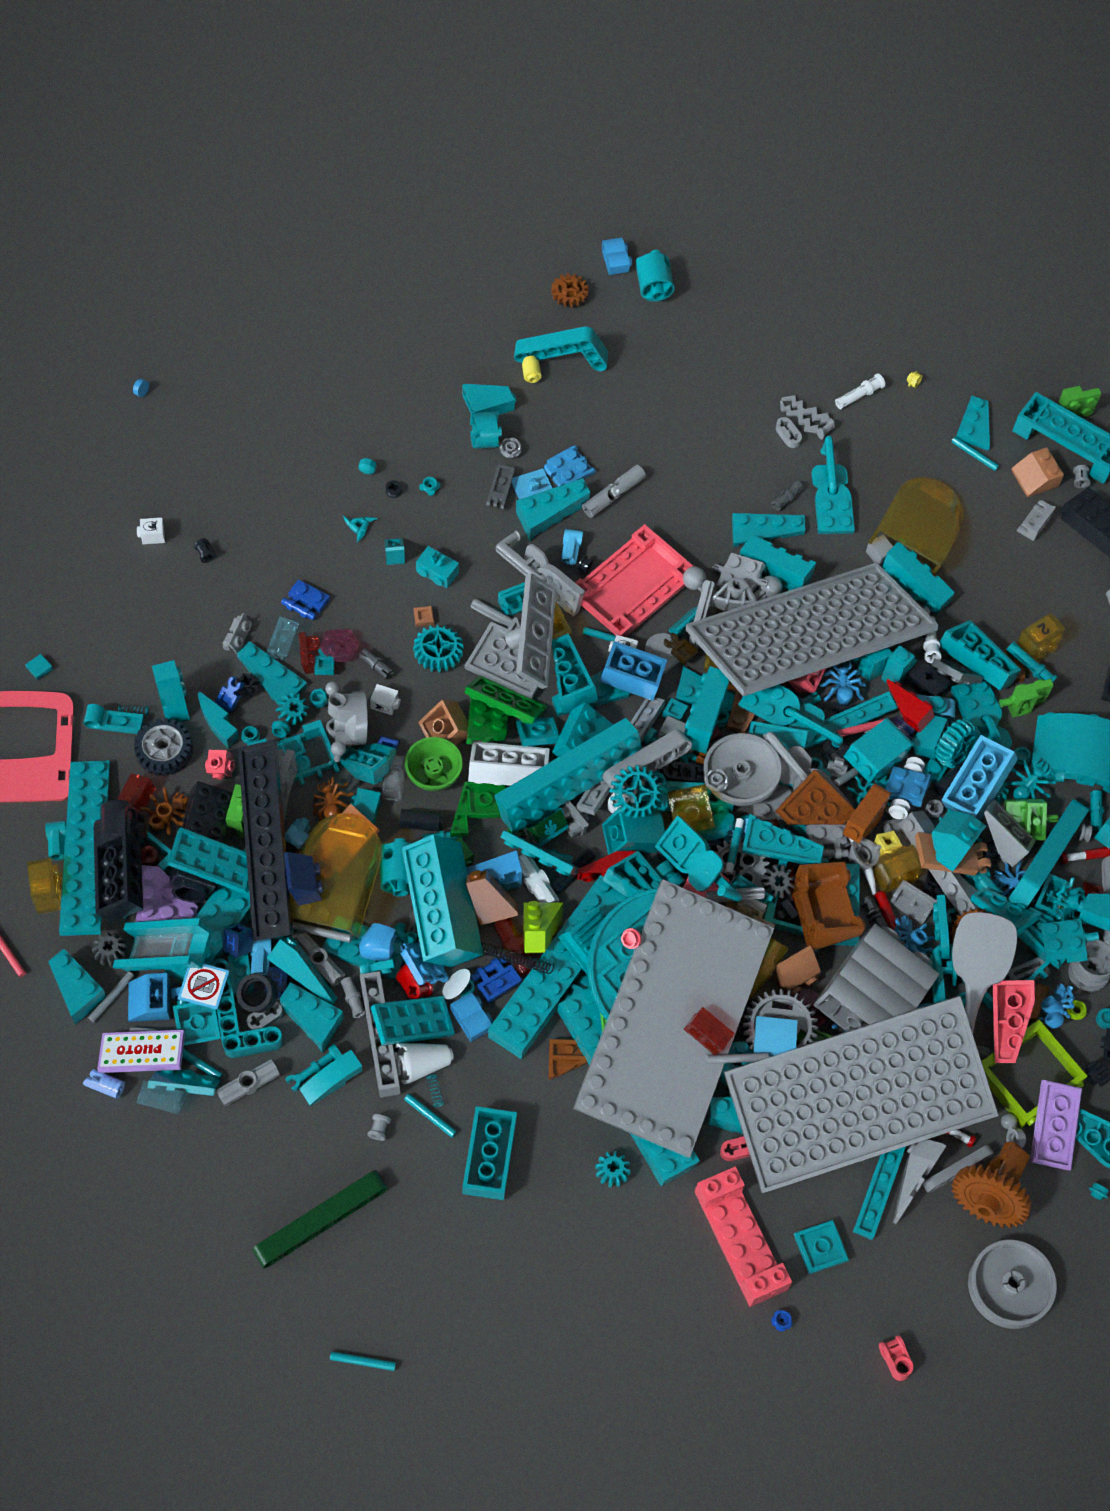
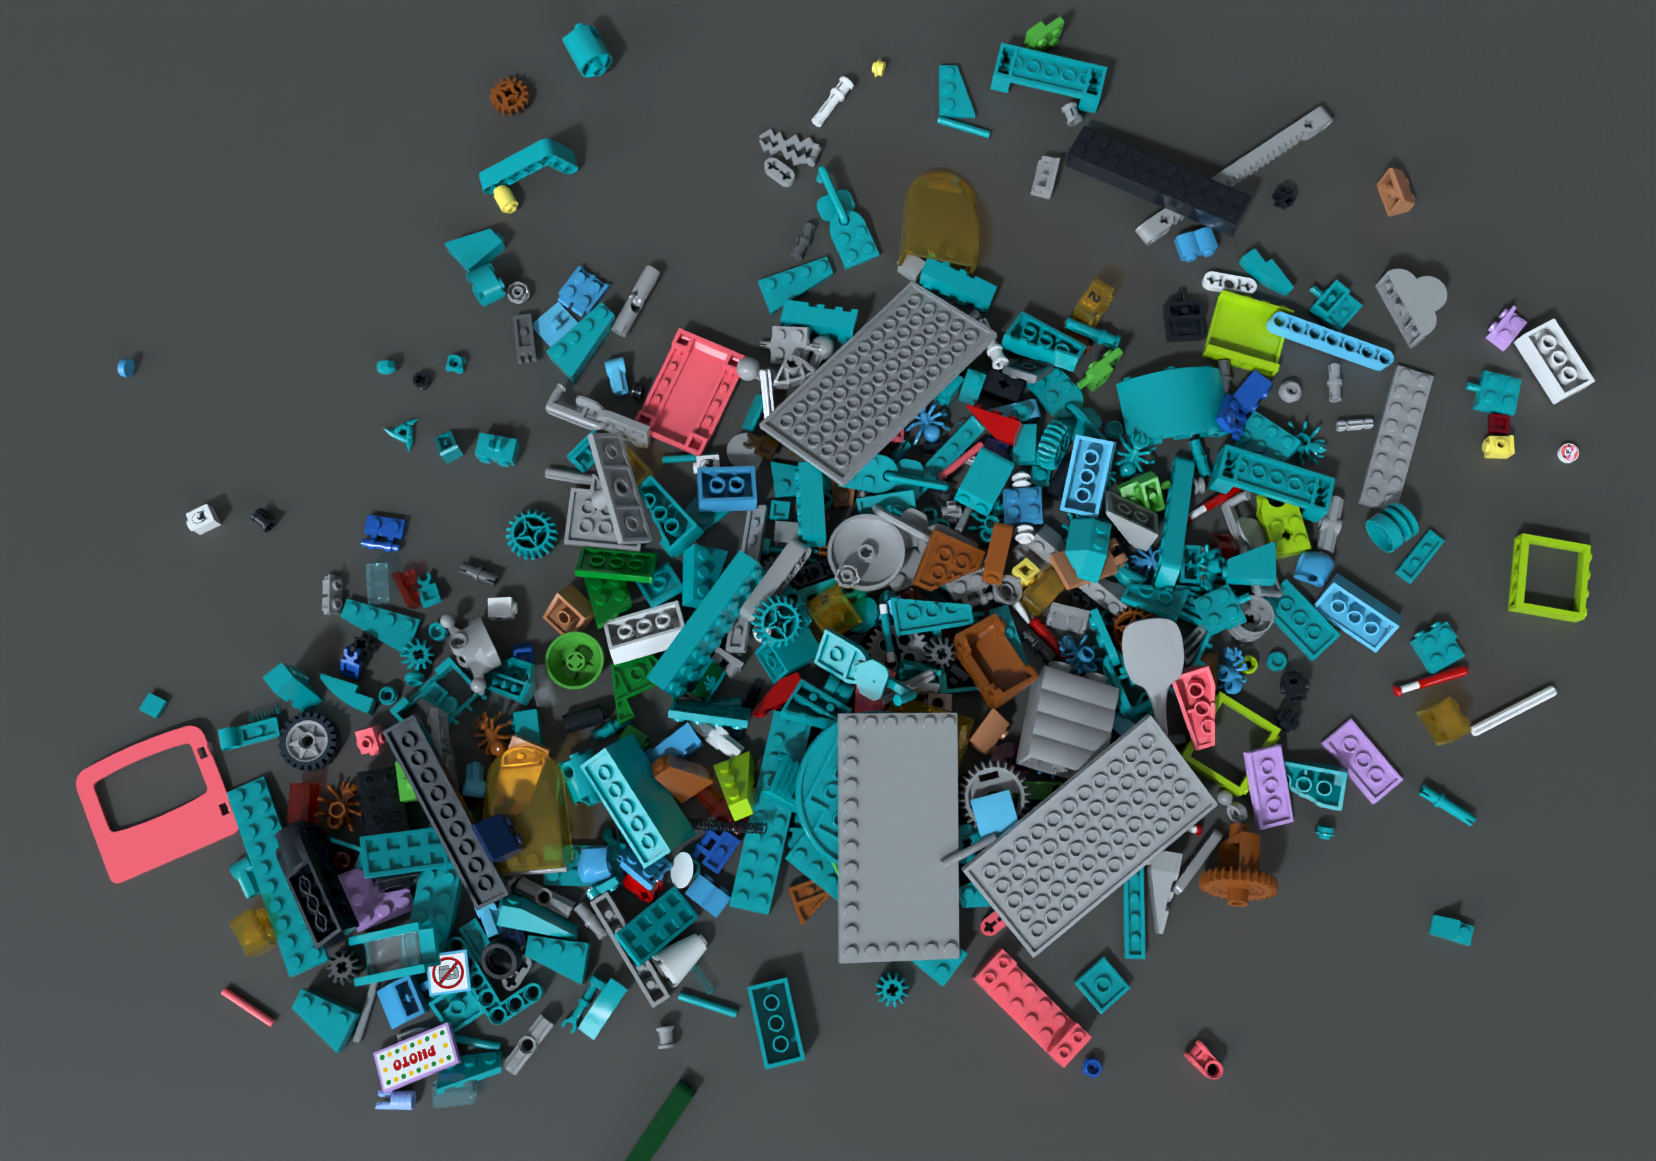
camera: 20 degrees left, 15 degrees up
(237, 940) = (461, 914): dark blue brick -> none
(343, 637) = (435, 558): clear pink plate -> none
(423, 616) = (504, 505): nougat tile -> none
(616, 256) = (540, 40): dark azure brick -> none
(631, 938) = (831, 783): coral plate -> none
(709, 1031) = (935, 839): clear red hinge -> none
(935, 803) = (1047, 515): light grey bush -> none
(998, 1300) = (1259, 949): light grey piece -> none
(1038, 472) = (1030, 126): nougat slope -> none

